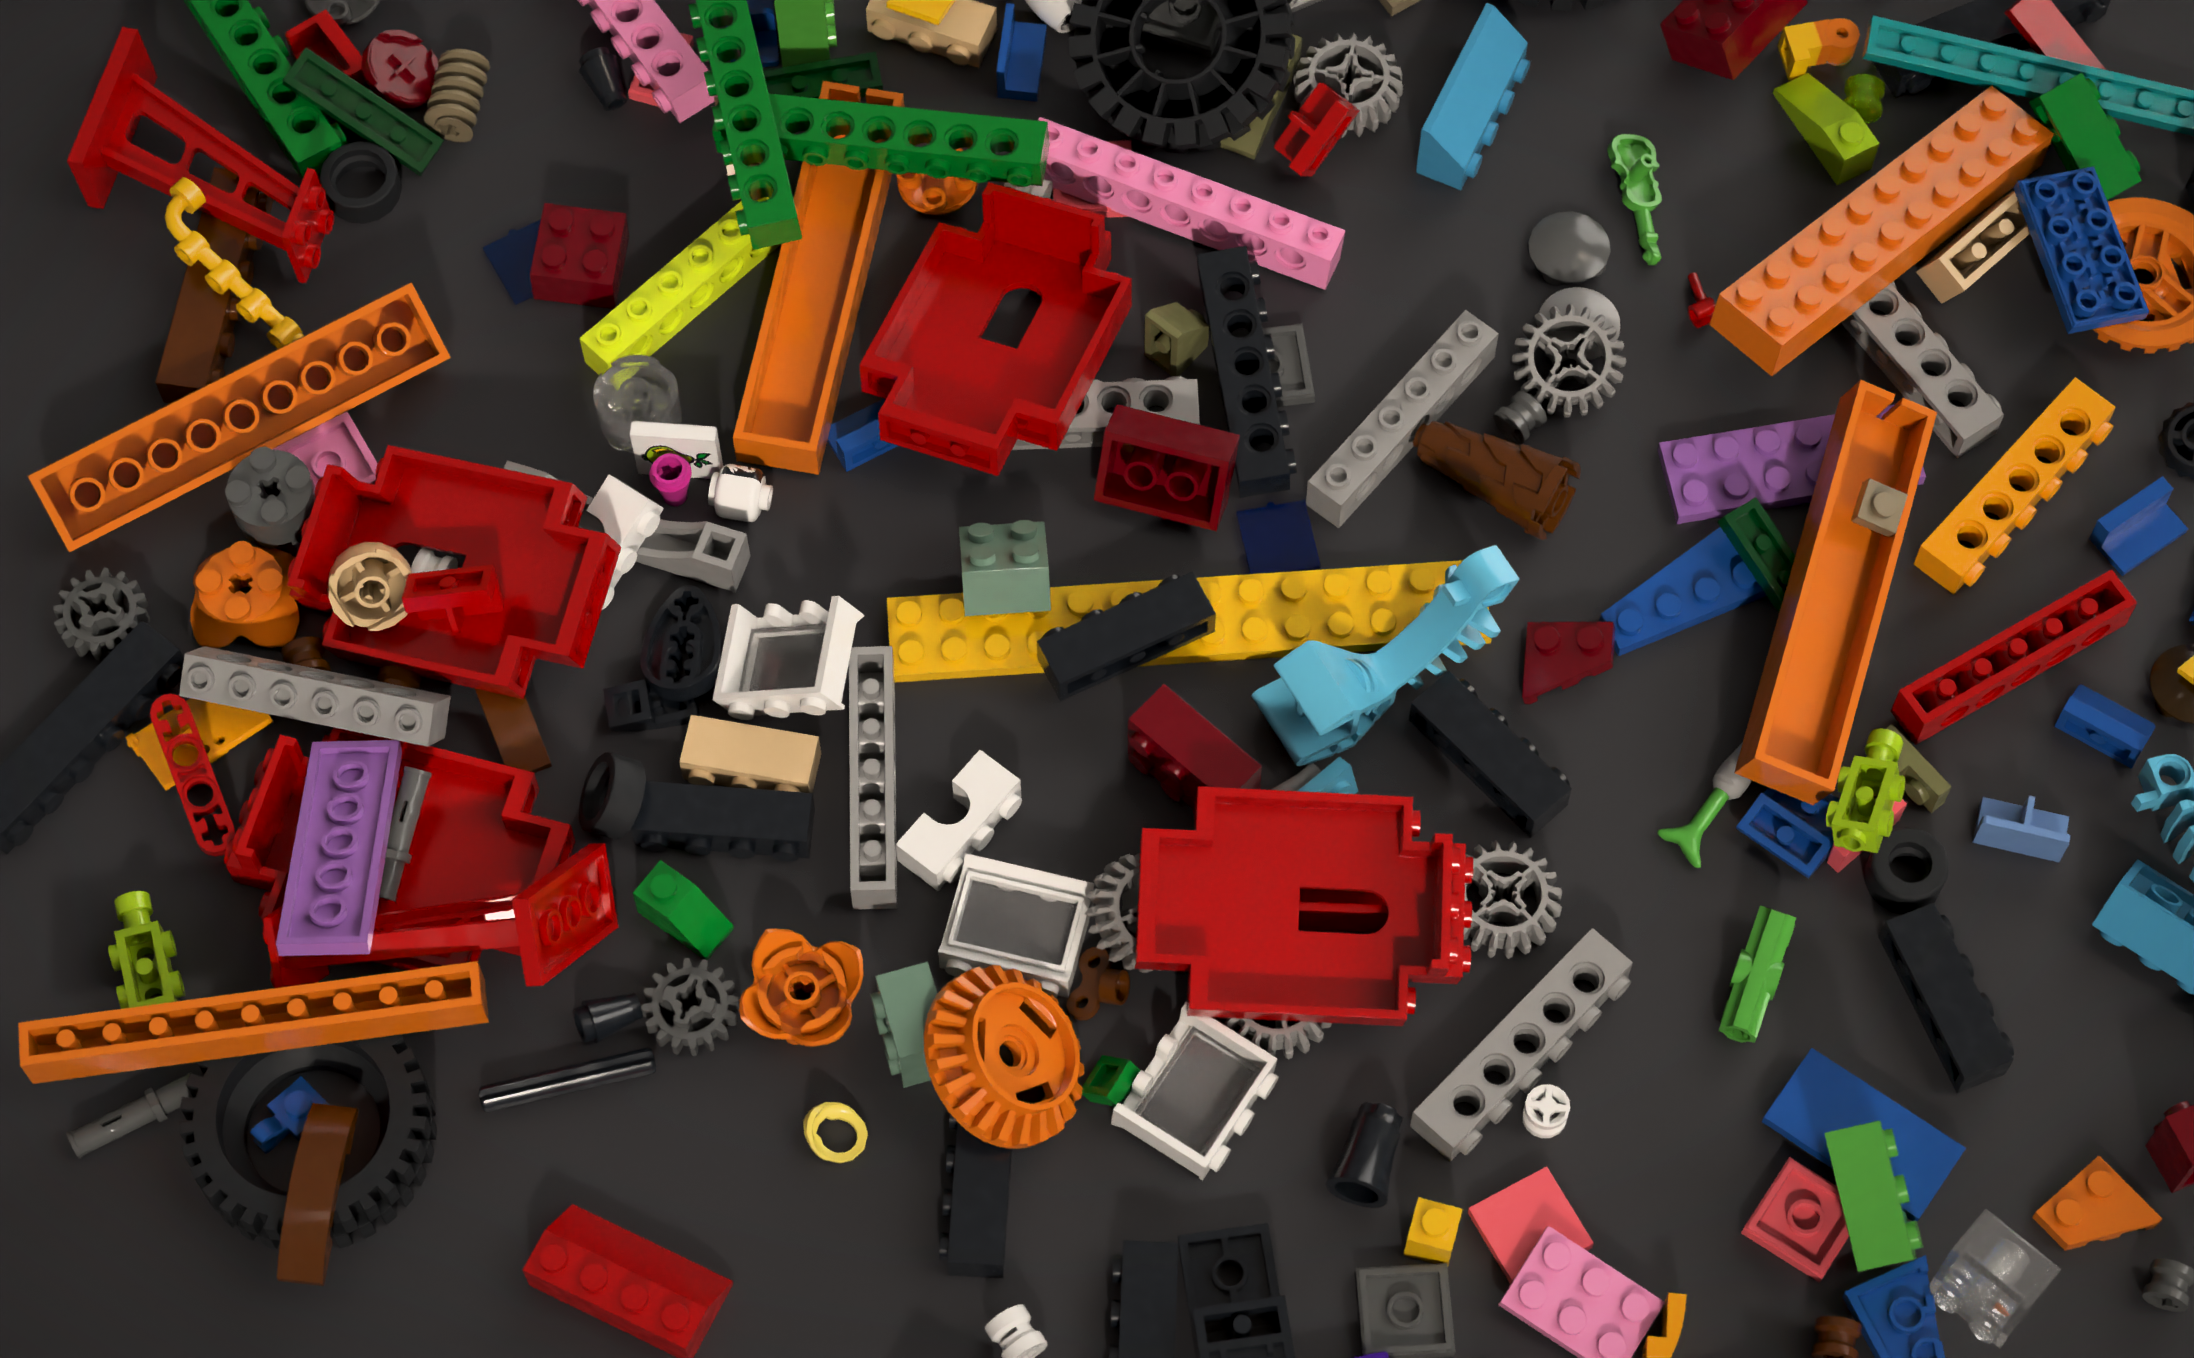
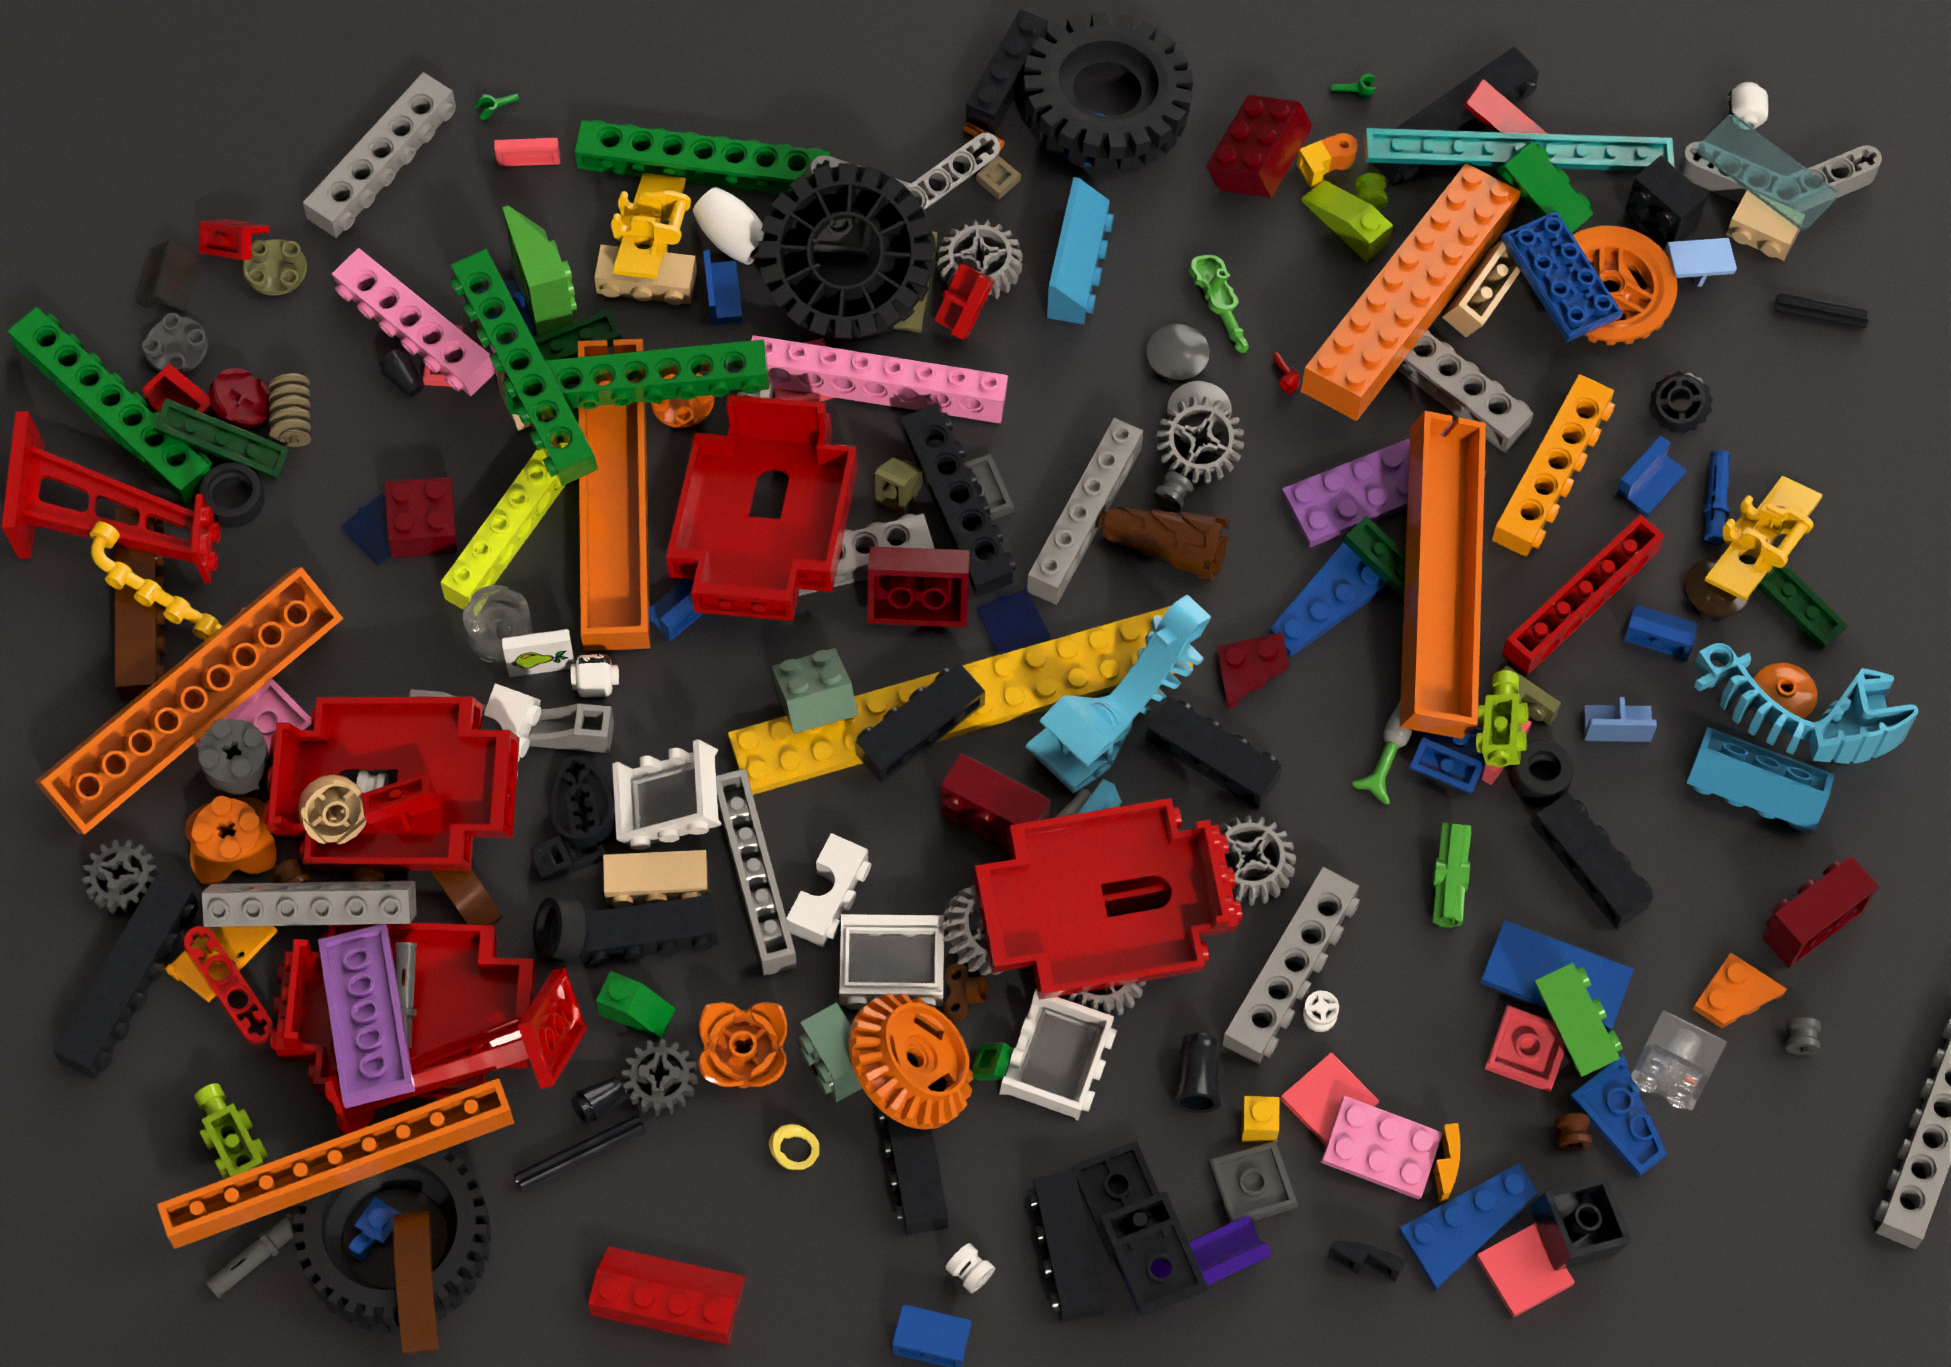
camera: 15 degrees left, 0 degrees up
(671, 478) = (539, 675): dark pink cone -> none
(1879, 507) = (1460, 504): dark tan plate -> none

